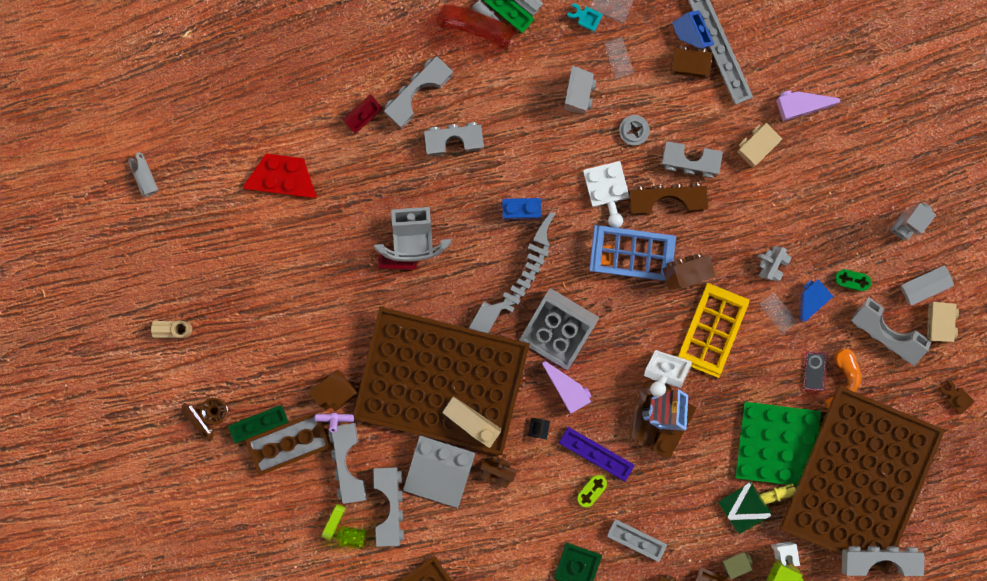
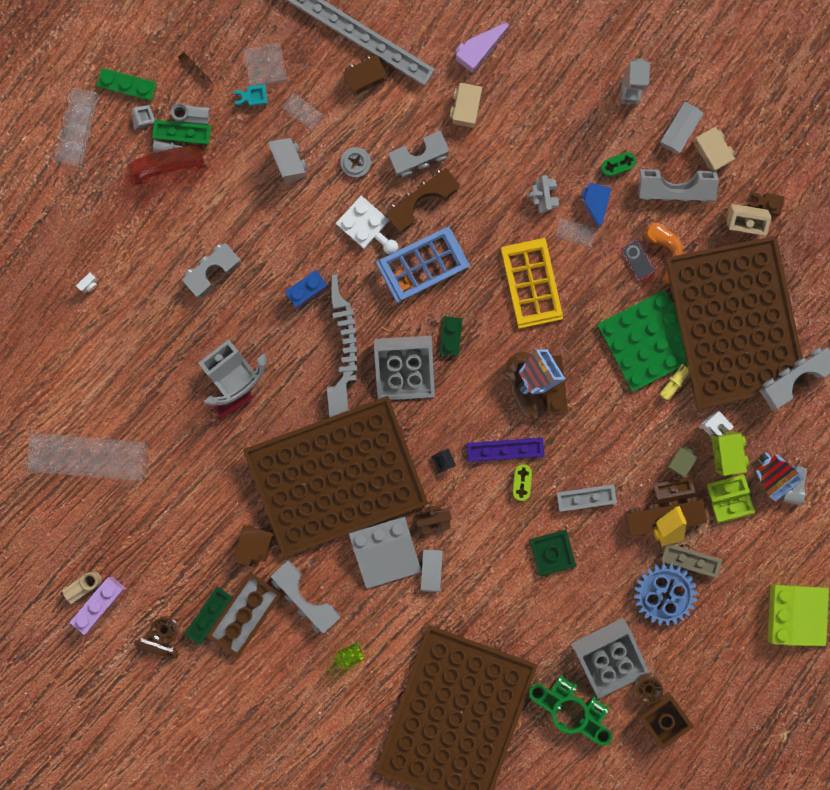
camera: 30 degrees left, 0 degrees up
(173, 353) = (95, 607): none -> lavender arch
(247, 225) = (87, 456): none -> clear brick
(281, 176) = (88, 397): red wing -> none
(333, 522) = (326, 654): lime beam -> none
(334, 418) = (268, 568): lavender piece -> none
(344, 82) = (88, 283): none -> white plate
(362, 114) = (121, 300): dark red plate -> none
(389, 531) = (378, 630): light grey arch -> none
(435, 74) = (158, 226): light grey arch -> none
(467, 512) = (431, 570): none -> light grey slope
(472, 422) = (384, 492): tan slope -> none
(570, 391) = (448, 412): lavender slope -> none
(615, 329) = (451, 336): none -> dark green plate
(666, 369) = (515, 341): white plate -> none
(689, 271) = (478, 247): reddish brown brick -> none
(693, 30) = (348, 47): blue slope -> none
(745, 507) = (656, 410): dark green tile -> none
(931, 400) = (748, 219): none -> tan brick

